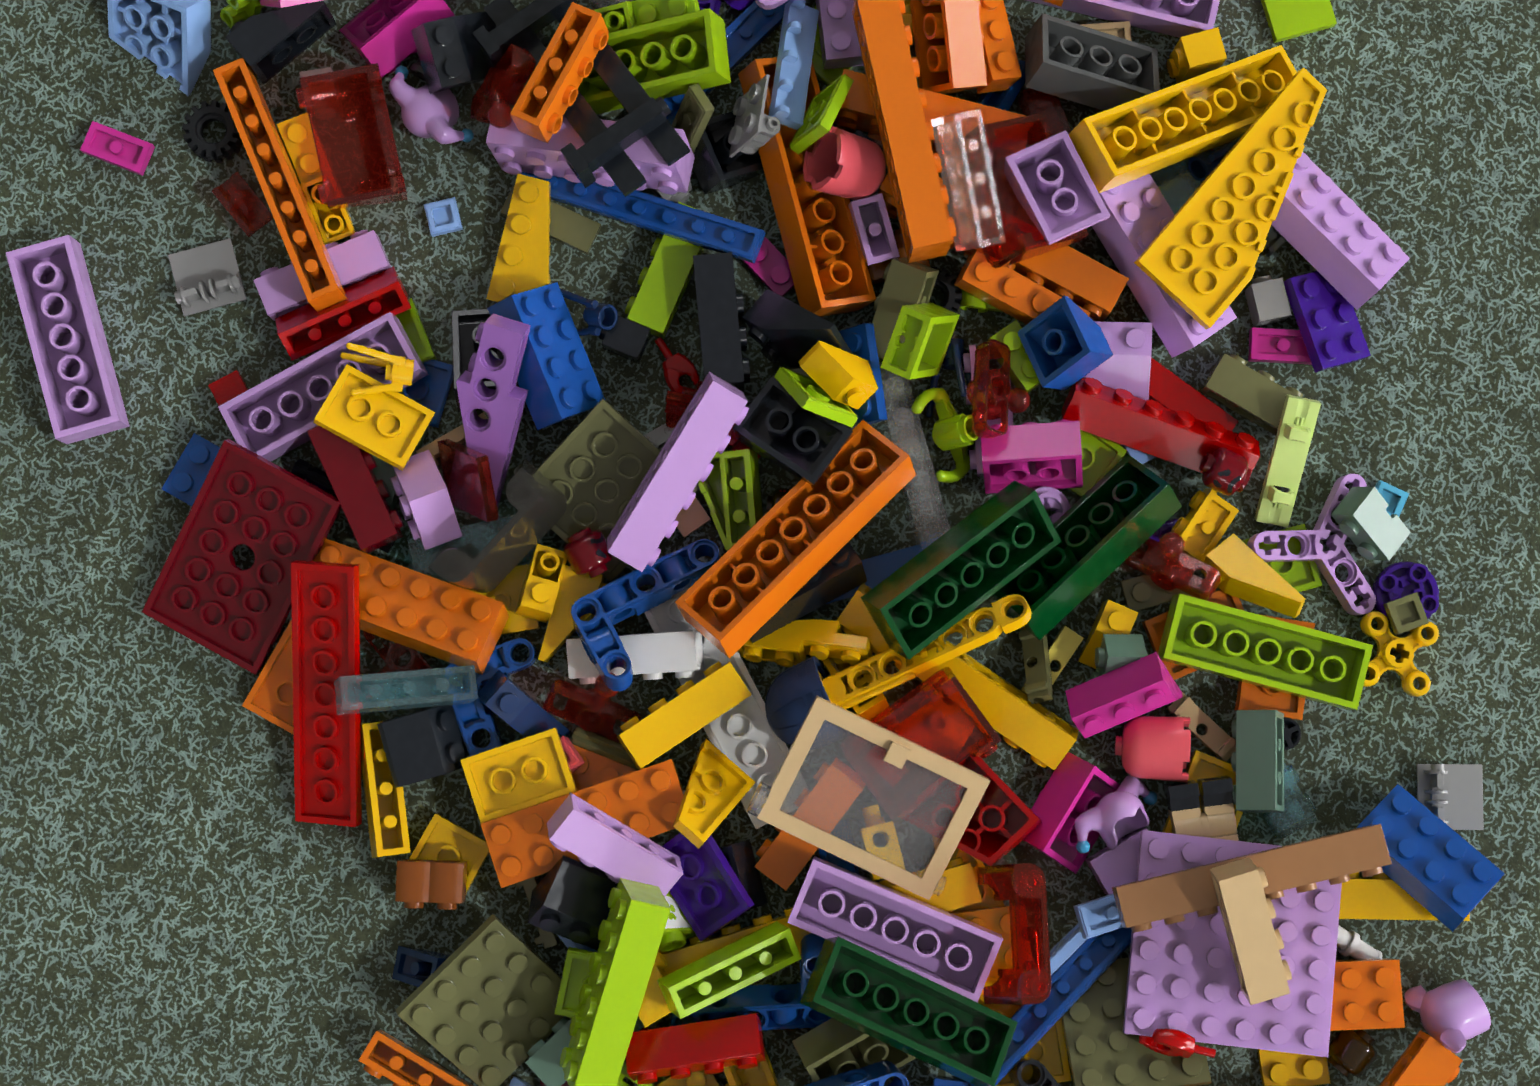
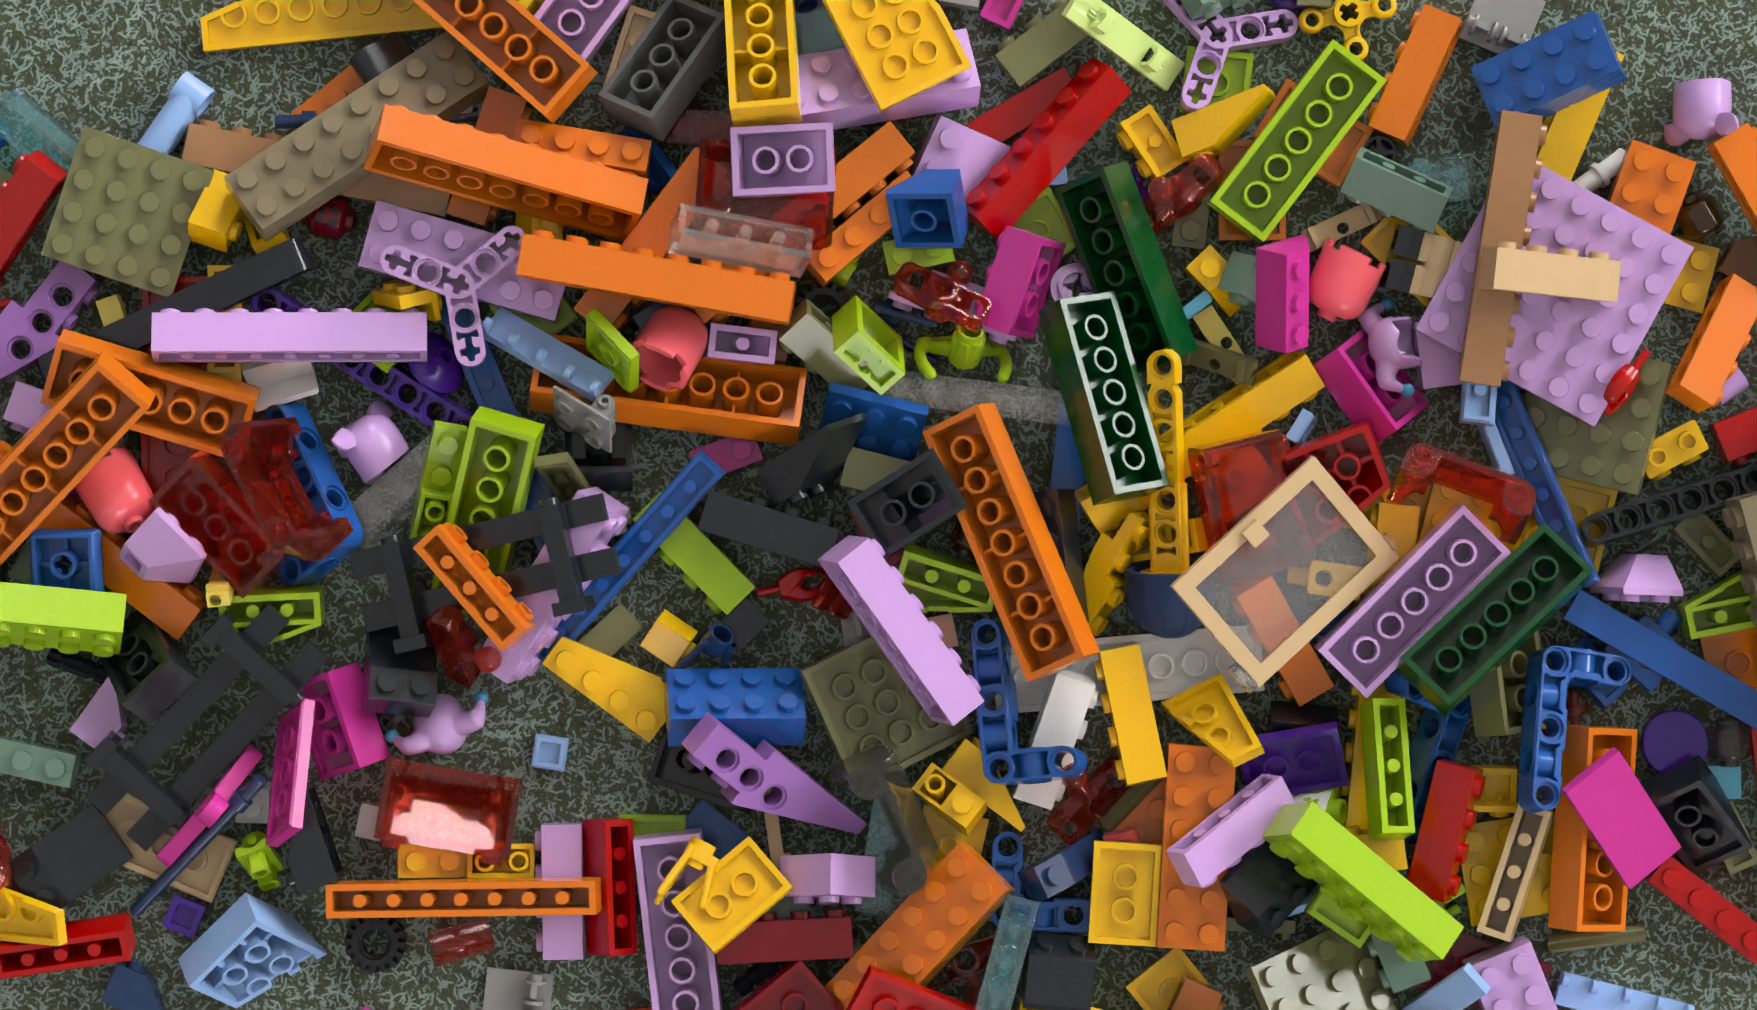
camera: 65 degrees left, 5 degrees up
(468, 480) = (825, 829): clear red tile -> none
(586, 276) = (670, 638): none -> yellow brick
(587, 552) = (940, 744): dark red head -> none
(814, 398) = (884, 468): lime tile -> none
(840, 374) = (872, 436): yellow slope -> none
(1007, 765) = (1301, 427): none -> light blue tile
(1078, 625) = (1197, 304): none -> medium azure tile
(1225, 471) = (1110, 105): dark red head -> none
(1368, 737) = (1415, 74): none -> orange brick

